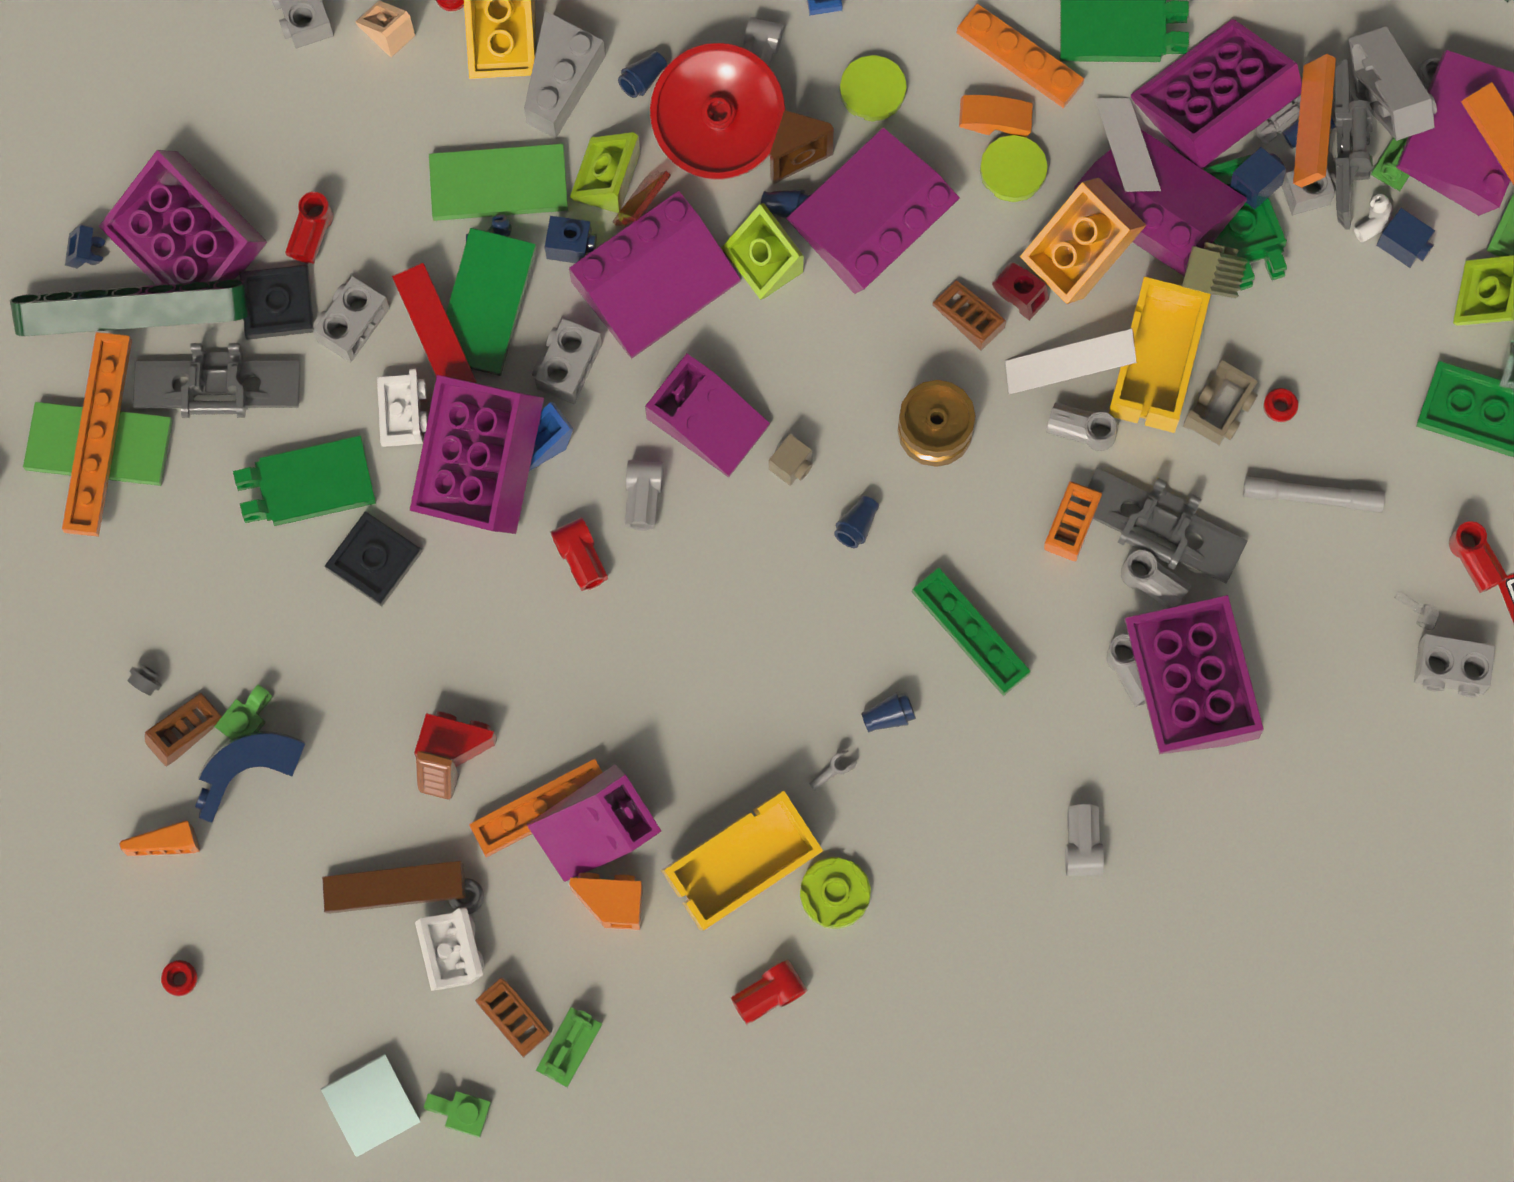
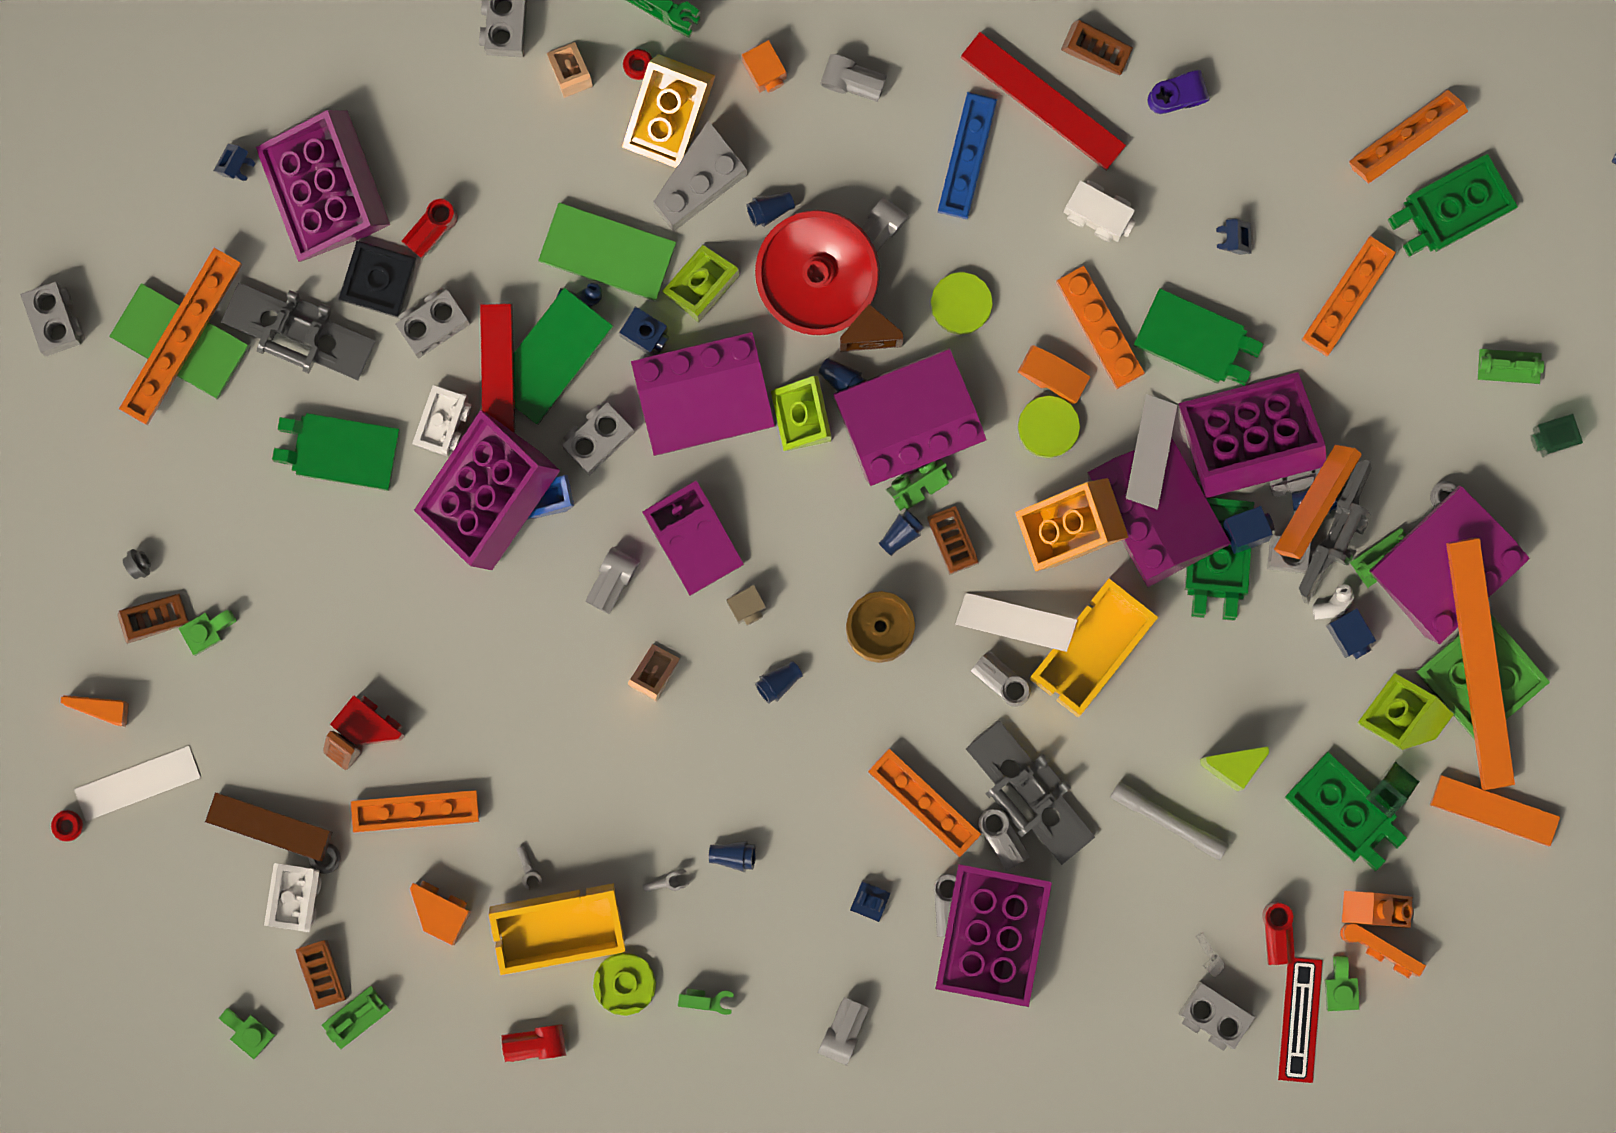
camera: 20 degrees right, 10 degrees up
(129, 307) = (250, 236): beam -> none
(236, 905) = (137, 783): none -> white sticker
(244, 752) = (190, 663): dark blue arch -> none
(370, 1105) = (177, 996): light aqua slope -> none
(373, 558) = (366, 539): black tile -> none
(576, 546) = (537, 601): red piece -> none
(594, 825) = (451, 847): magenta slope -> none
(641, 198) = (719, 322): clear red piece -> none
(682, 817) = (527, 867): none -> light grey hand
(725, 568) = (653, 672): none -> light nougat slope
(901, 281) = (907, 487): none -> bright green hinge
(915, 325) = (902, 532): none -> dark blue cone
(920, 875) = (696, 1000): none -> bright green plate
(971, 631) = (831, 815): green plate -> none
(1021, 289) = (1005, 538): dark red leg -> none
(1050, 701) = (870, 901): none -> dark blue tile
(1059, 579) = (924, 803): none -> orange plate
(1063, 549) = (965, 766): orange slope -> none
(1215, 270) = (1170, 599): olive brick -> none
(1221, 404) = (1128, 710): dark tan window -> none
(1280, 395) = (1187, 729): red plate -> none
(1355, 409) = (1235, 767): none -> lime slope
(1390, 84) = (1396, 499): light grey wedge -> none

